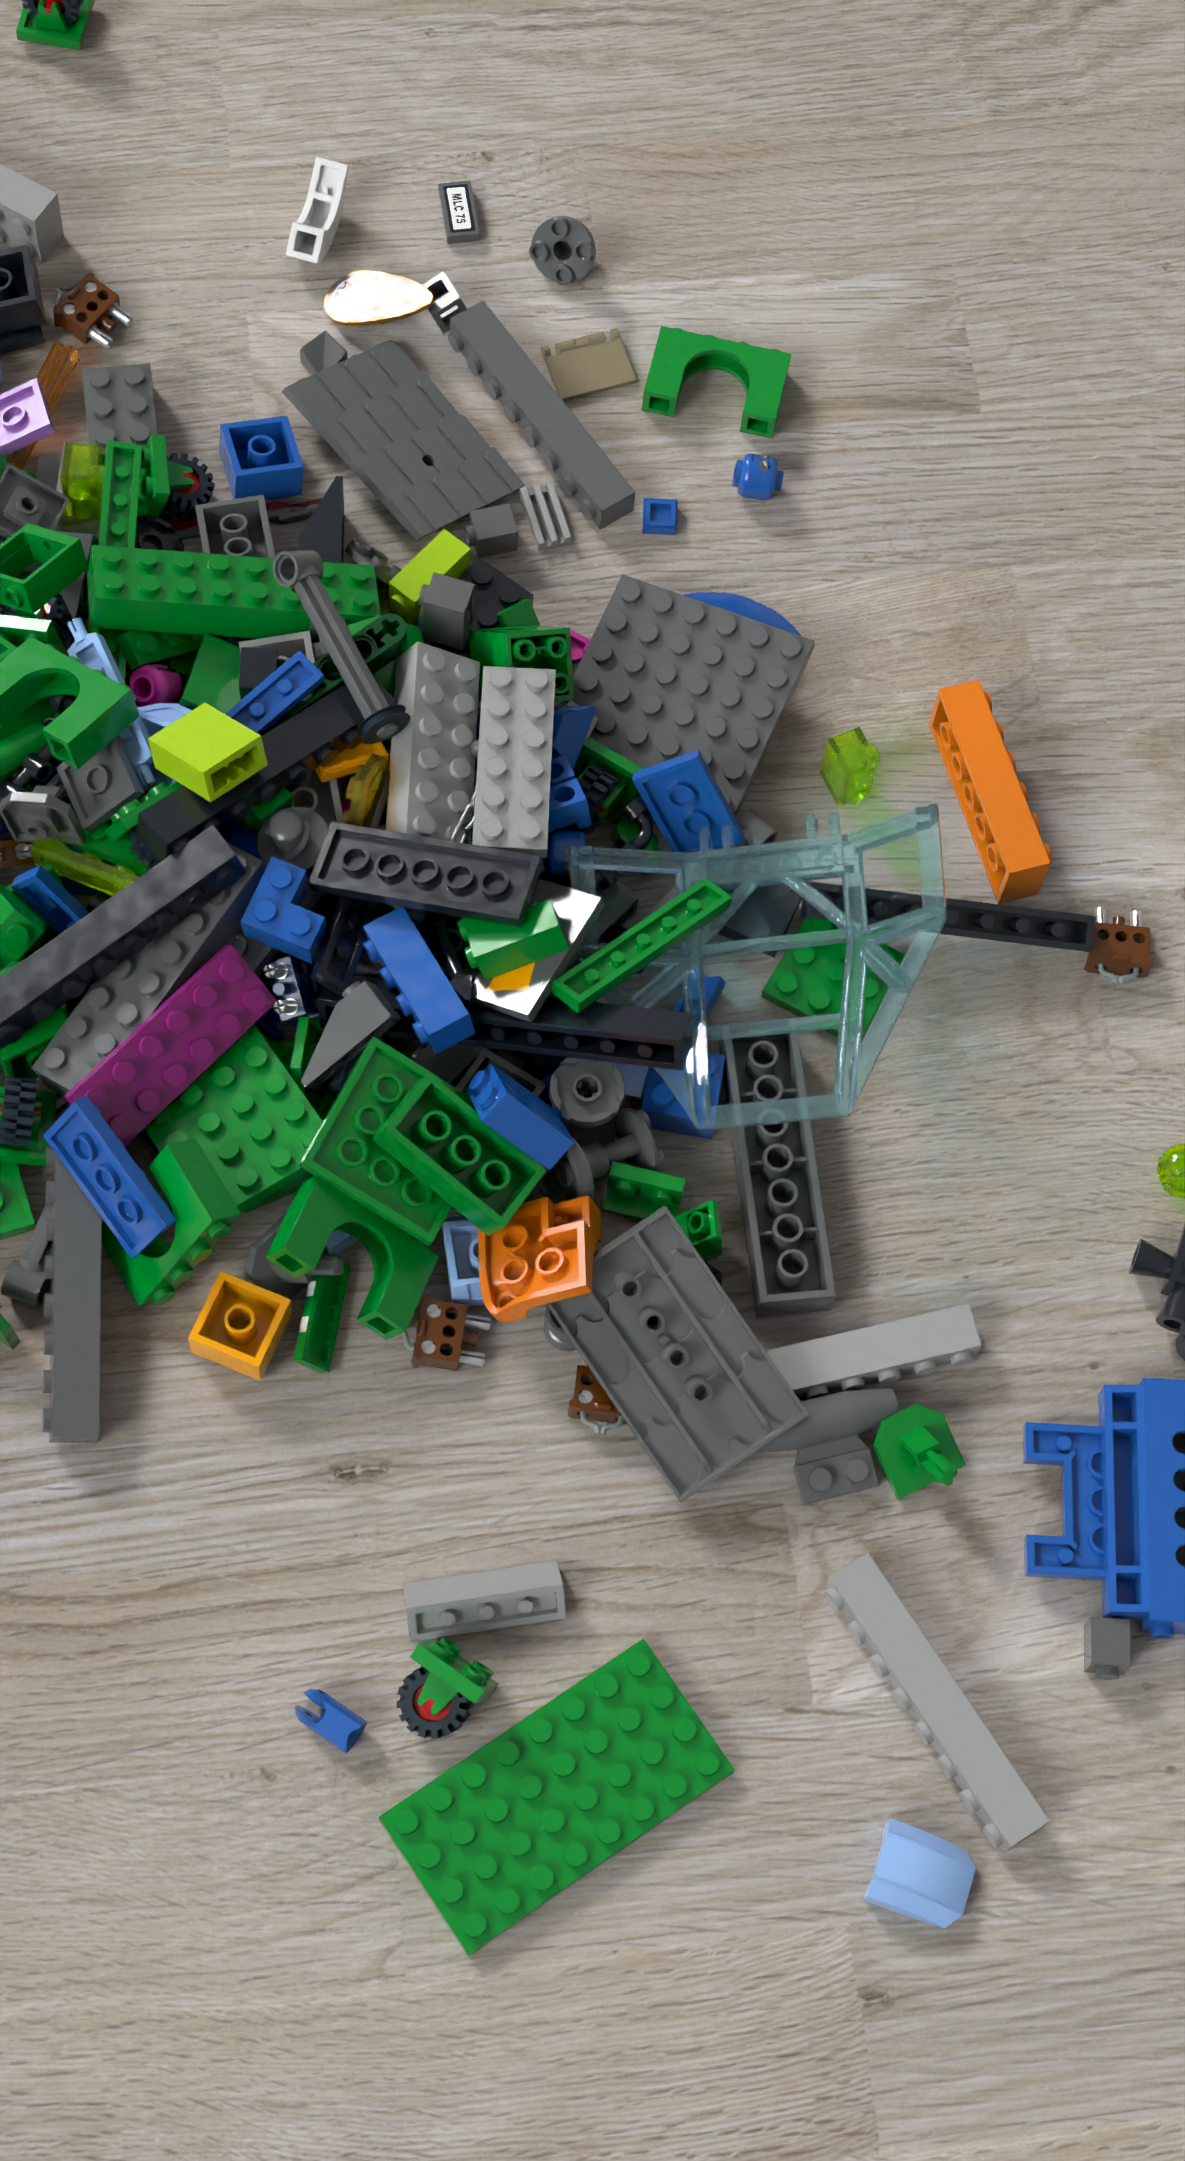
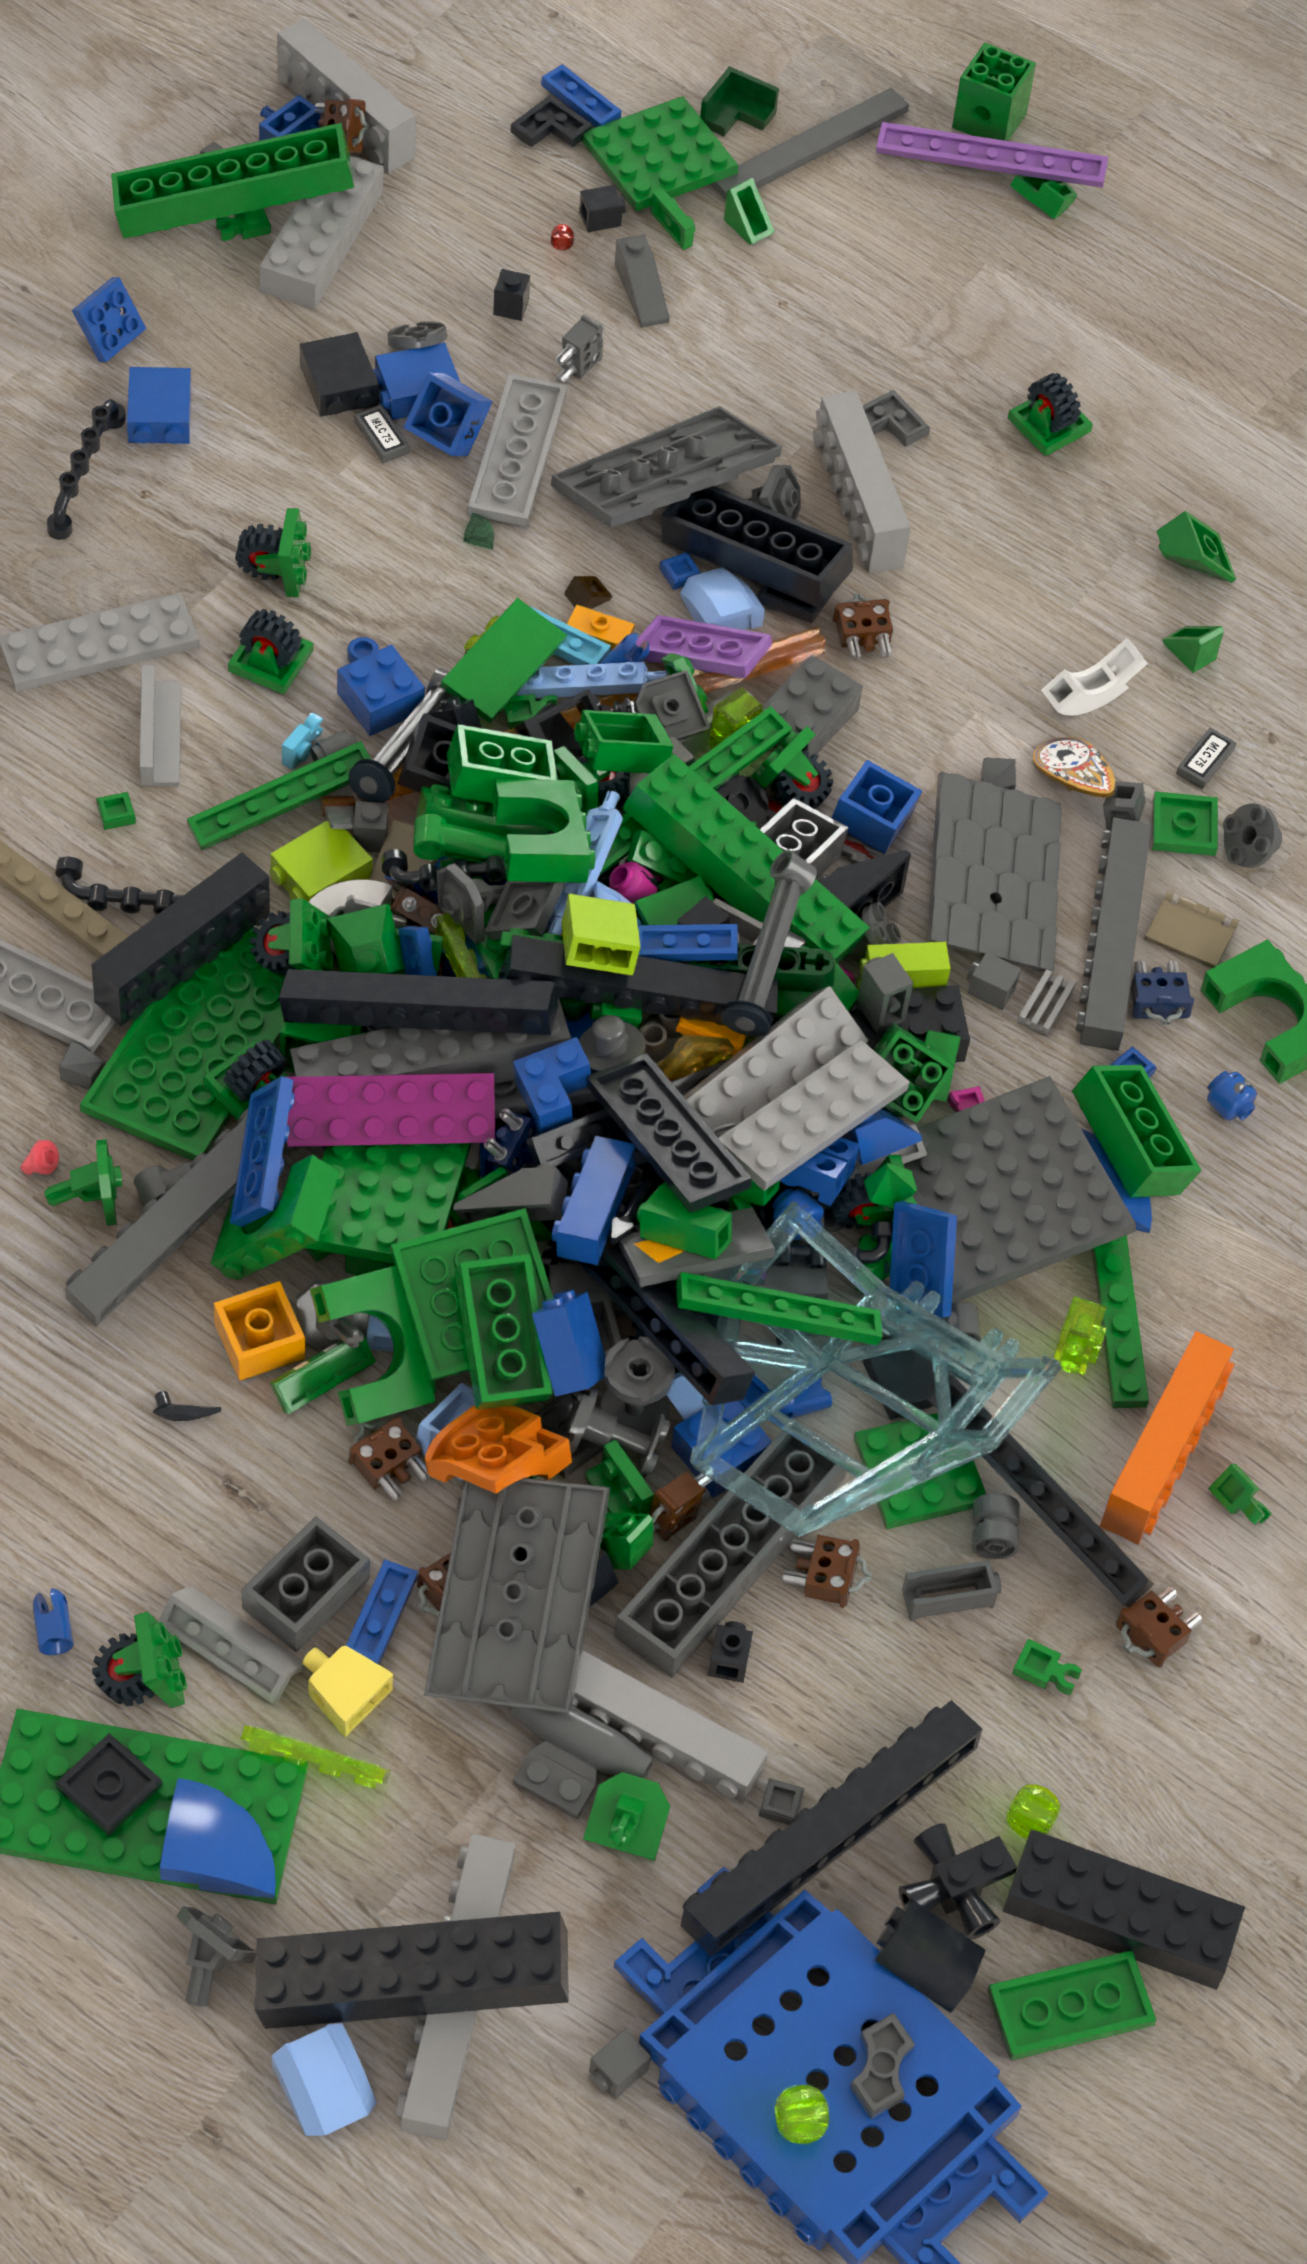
camera: 45 degrees right, 10 degrees down
(243, 1450) = (180, 1412): none -> black bar
(277, 38) = (1195, 546): none -> green slope
(357, 121) = (1195, 645): none -> green slope
(497, 1498) = (305, 1583): none -> dark grey brick
(500, 279) = (1185, 823): none -> green plate
(521, 1808) = (108, 1784): none -> black tile
(572, 1467) = (382, 1610): none -> blue plate
(608, 1550) = (346, 1685): none -> light yellow torso
(616, 768) = (890, 1185): none -> green slope
(624, 435) = (1161, 993): none -> dark blue piece
(650, 1773) = (215, 1844): none -> blue brick
(658, 1622) = (330, 1762): none -> clear neon green plate
(703, 1170) = (678, 1504): none -> reddish brown piece
(724, 565) = (1136, 1130): none -> green brick
(736, 1853) = (209, 1951): none -> dark grey piece
(838, 716) = (1122, 1336): none -> green plate
(851, 1260) = (727, 1661): none -> black brick
(868, 1119) = (829, 1570): none -> reddish brown piece
(907, 1728) = (412, 1970): none -> black brick
(942, 976) = (996, 1525): none -> dark grey wheel
(973, 1024) = (949, 1578): none -> dark grey window
(1003, 1331) = (781, 1801): none -> dark grey tile
(1068, 790) = (1236, 1492): none -> green plate
(1071, 1321) = (829, 1828): none -> black brick
(1074, 1053) = (1040, 1665): none -> green plate

